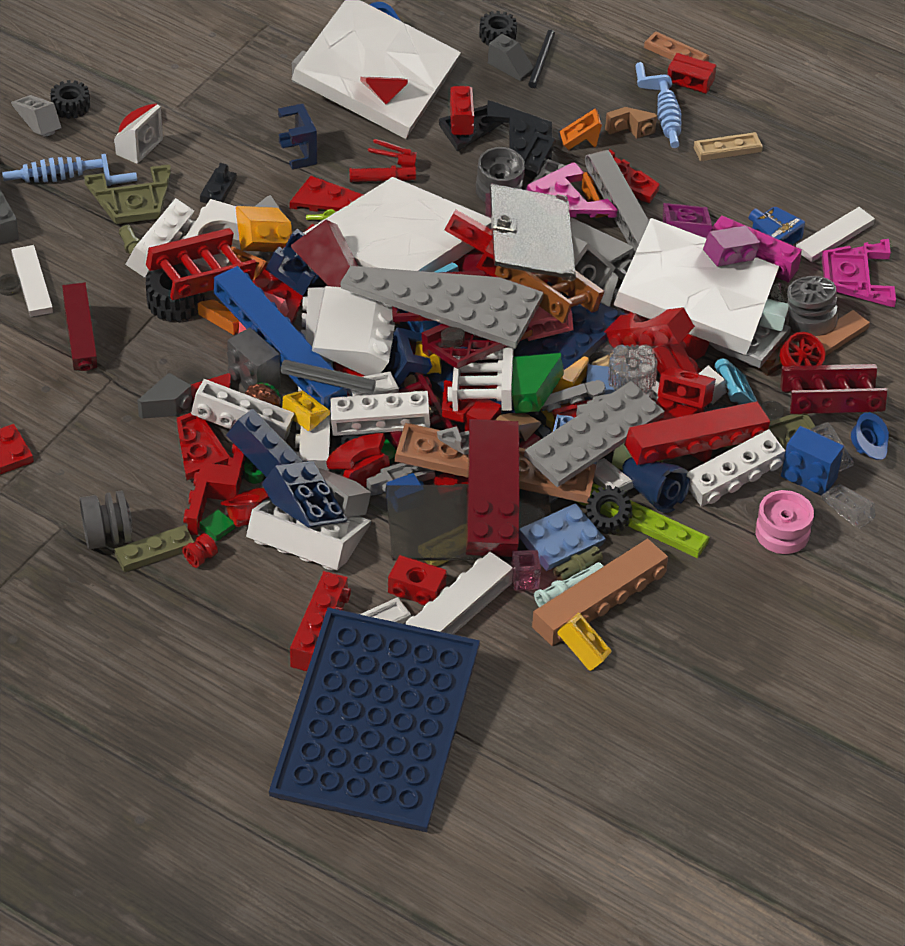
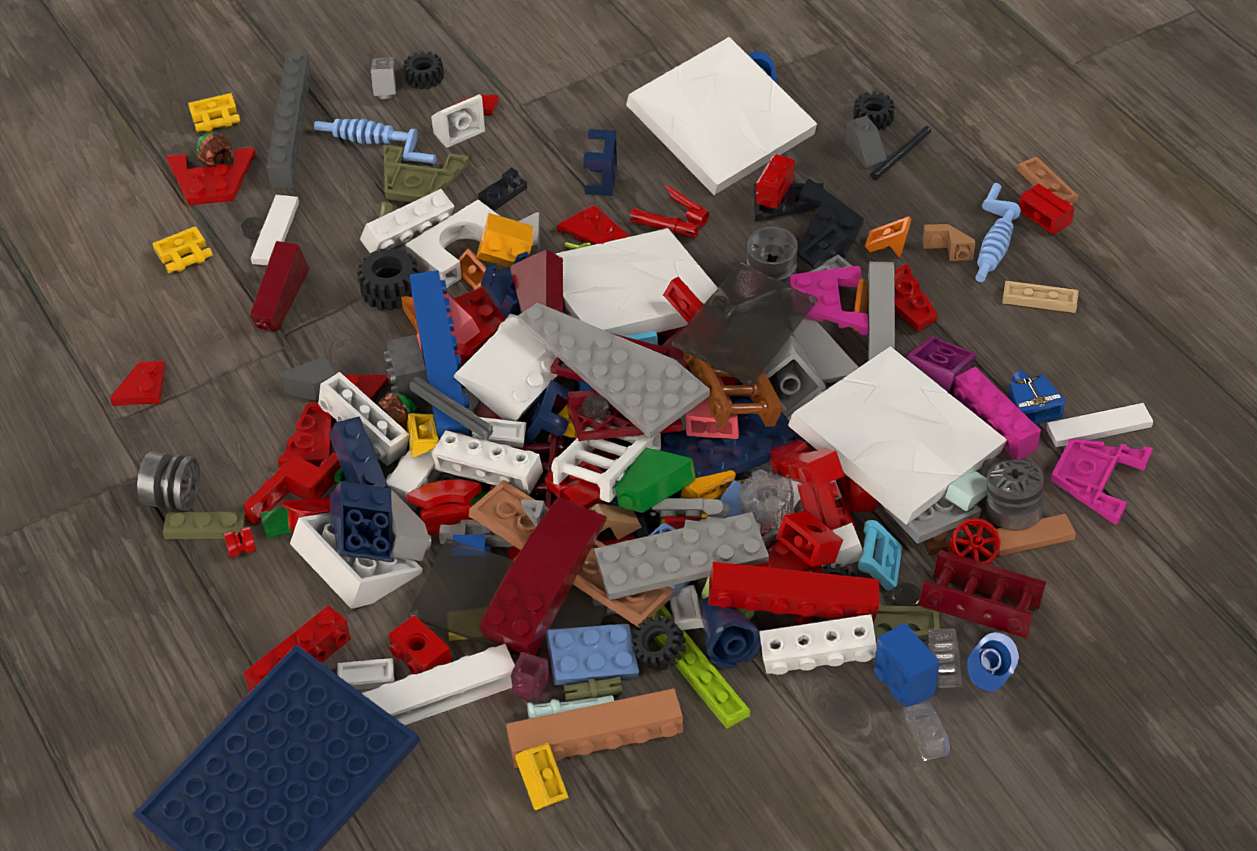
camera: 30 degrees right, 0 degrees up
(195, 248) = (416, 242): red fence -> none
(384, 87) = (709, 136): red slope -> none
(731, 245) = (957, 402): magenta brick -> none
(784, 522) = (835, 723): bright pink wheel -> none

